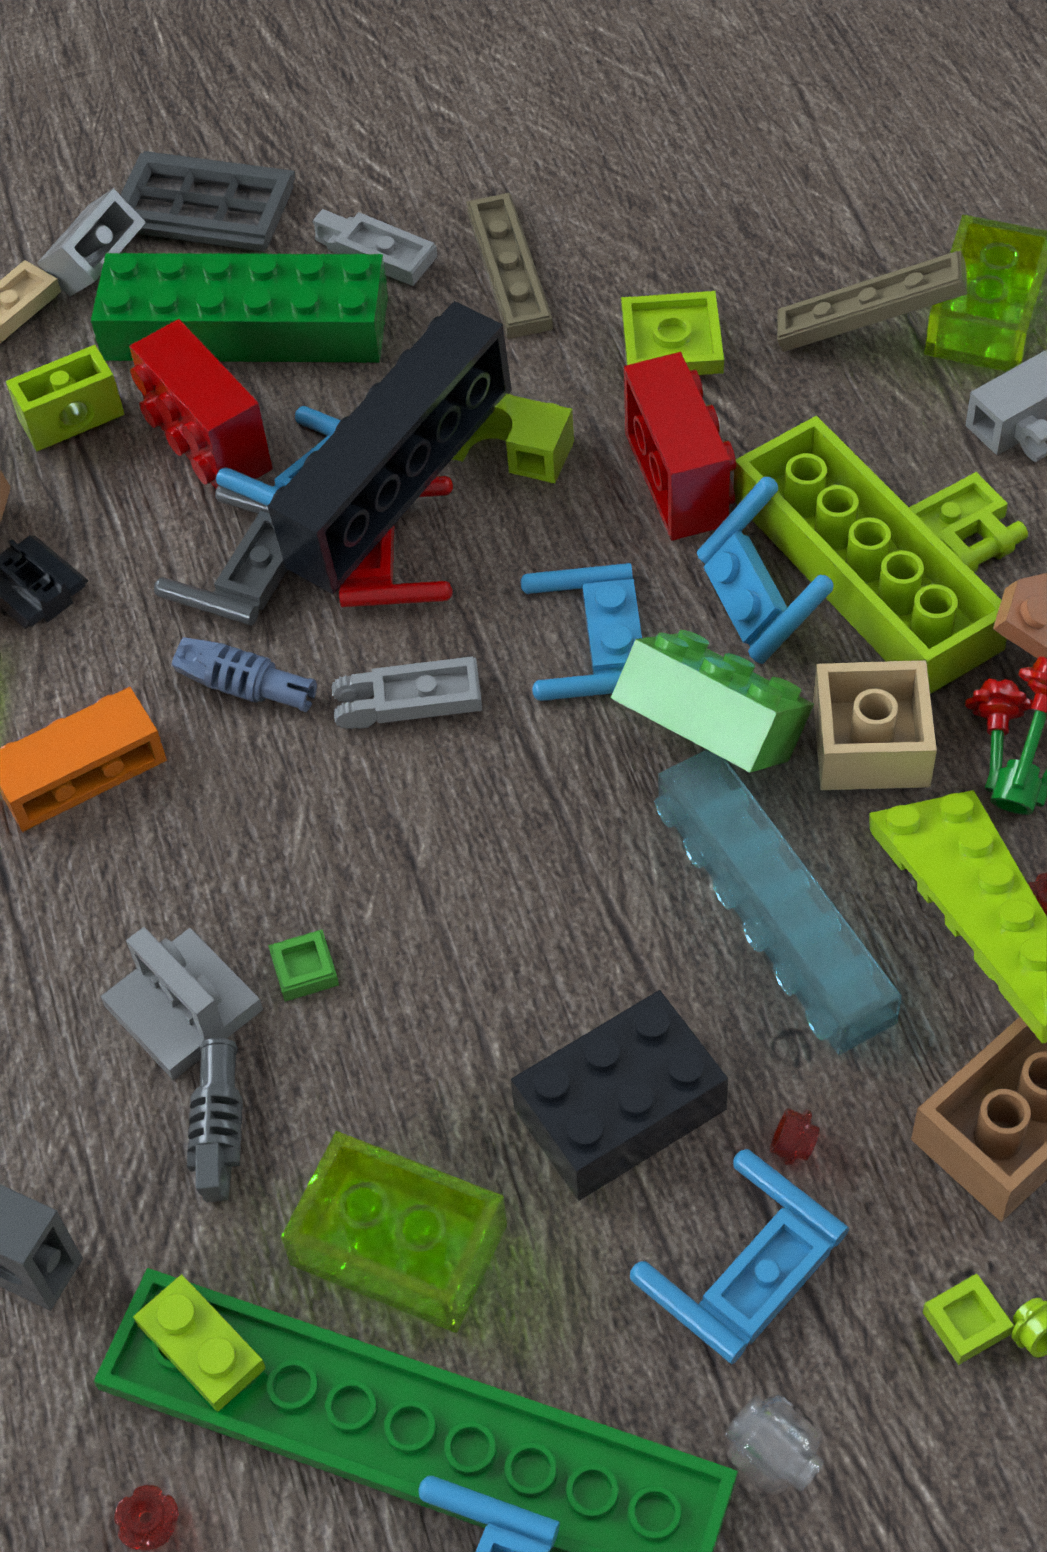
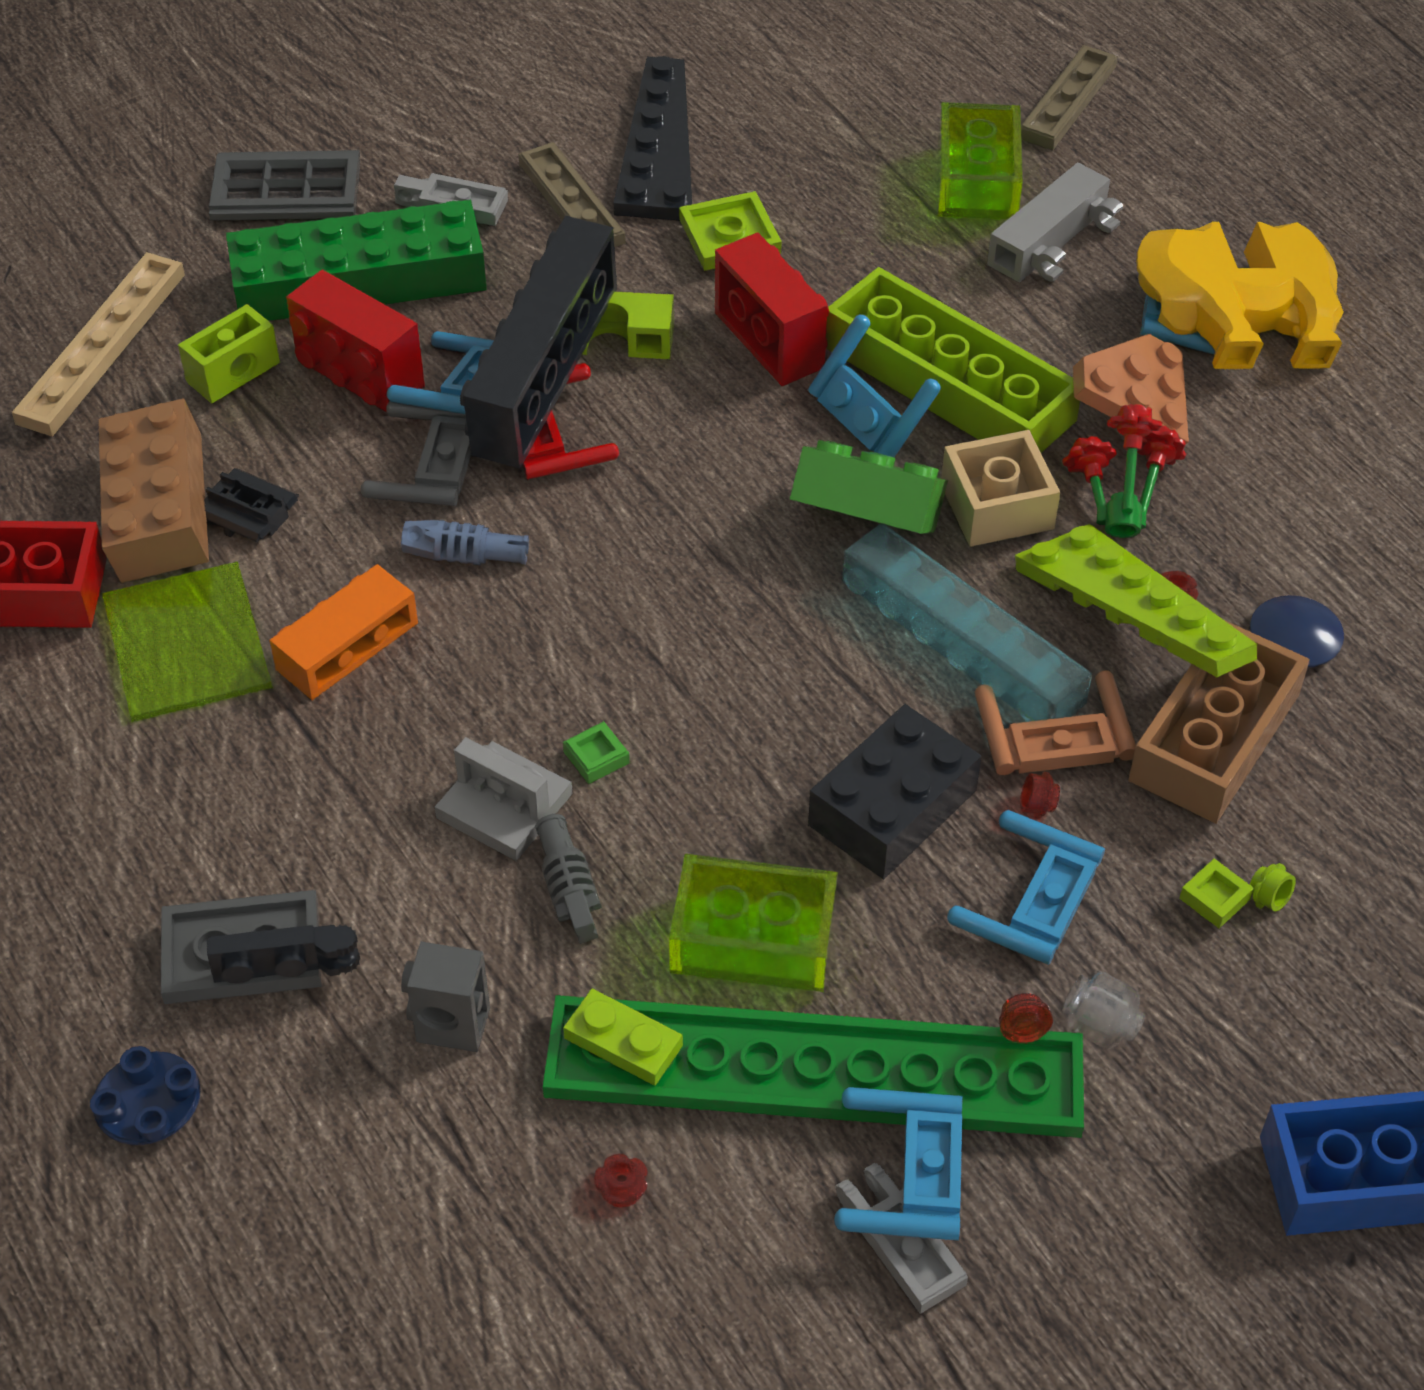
camera: 20 degrees left, 5 degrees down
(80, 251) = (202, 228): light grey brick -> none
(407, 692) = (609, 533): light grey hinge -> none
(610, 621) = (757, 456): dark azure plate -> none
(623, 226) = (657, 155): none -> black wing
(666, 1439) = (1025, 1018): none -> clear red plate
(841, 1070) = (1058, 741): none -> nougat plate
(872, 301) = (888, 178): dark tan tile -> none
(967, 509) = (1021, 321): lime plate -> none

